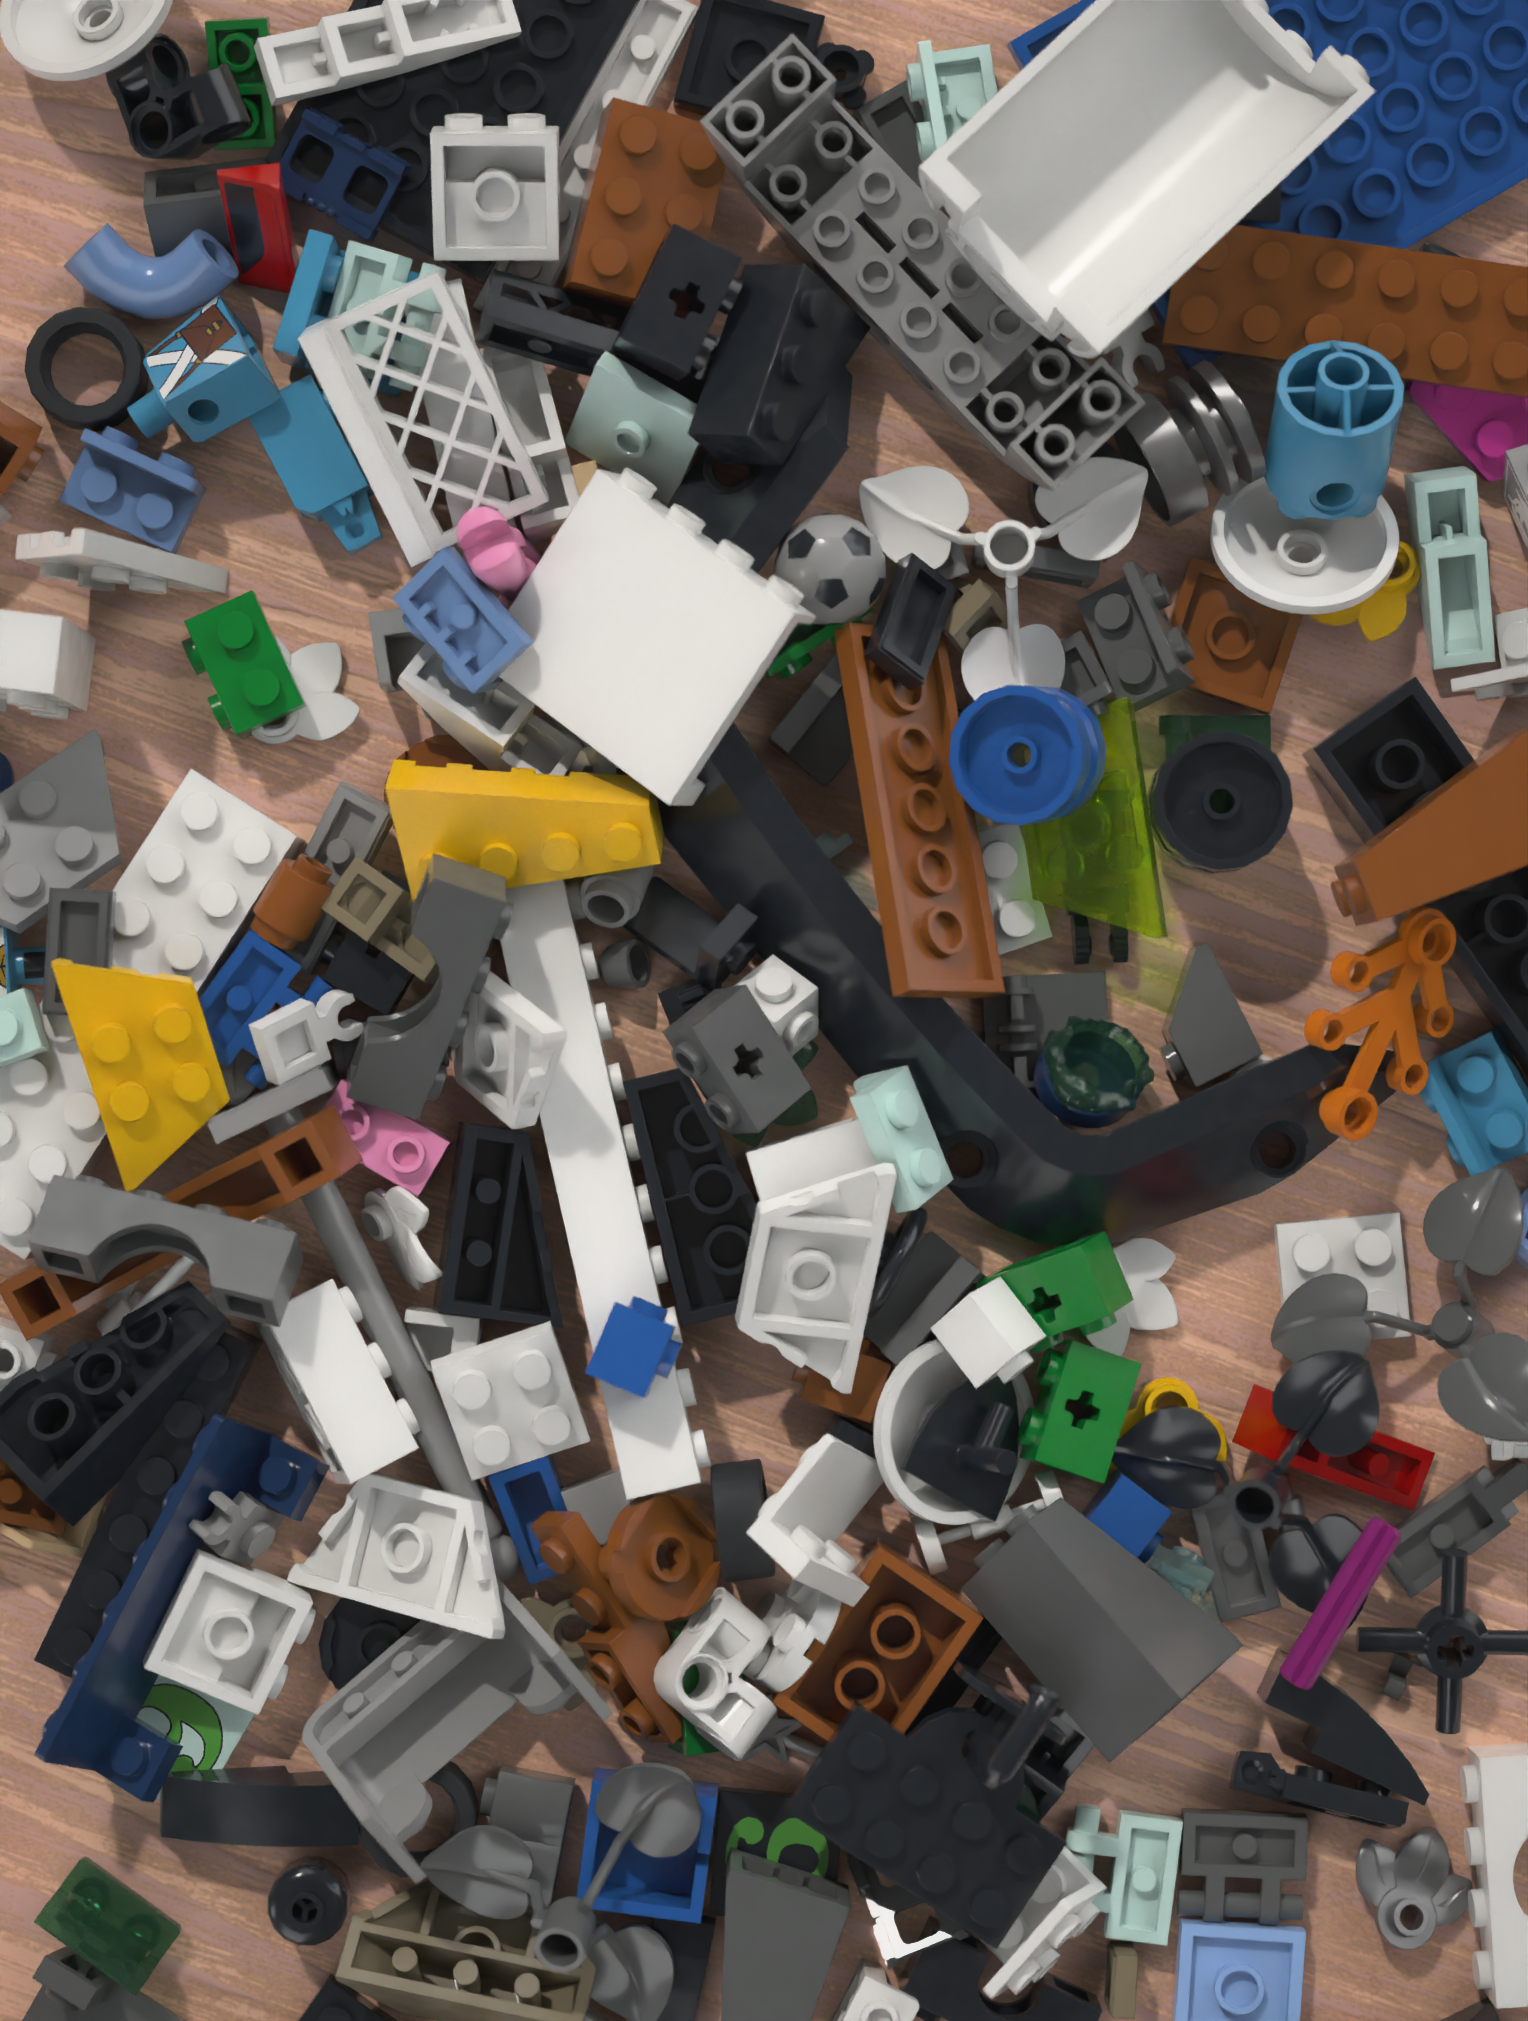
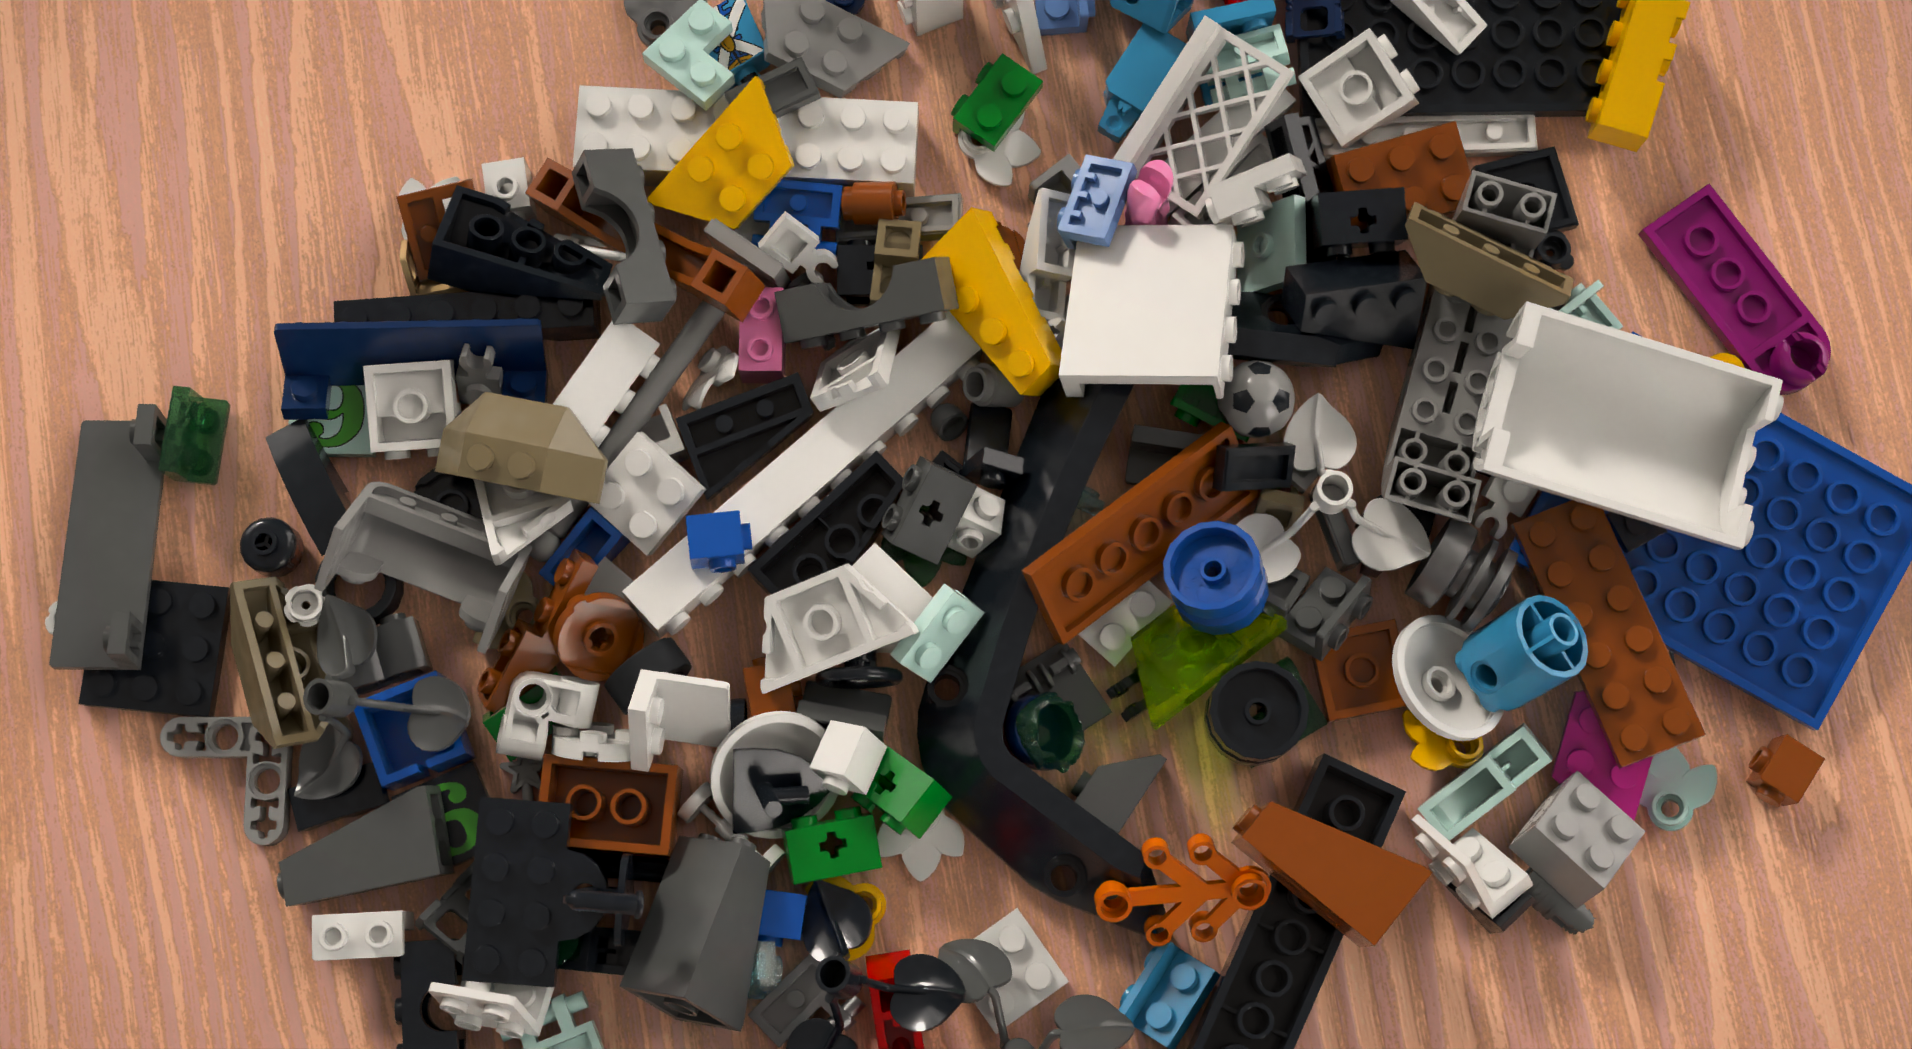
camera: 60 degrees right, 10 degrees down
(374, 1527) = (524, 448): none -> dark tan wedge
(411, 1915) = (294, 600): none -> white plate
(567, 430) = (1245, 195): none -> white plate
(832, 184) = (1481, 268): none -> dark tan wedge

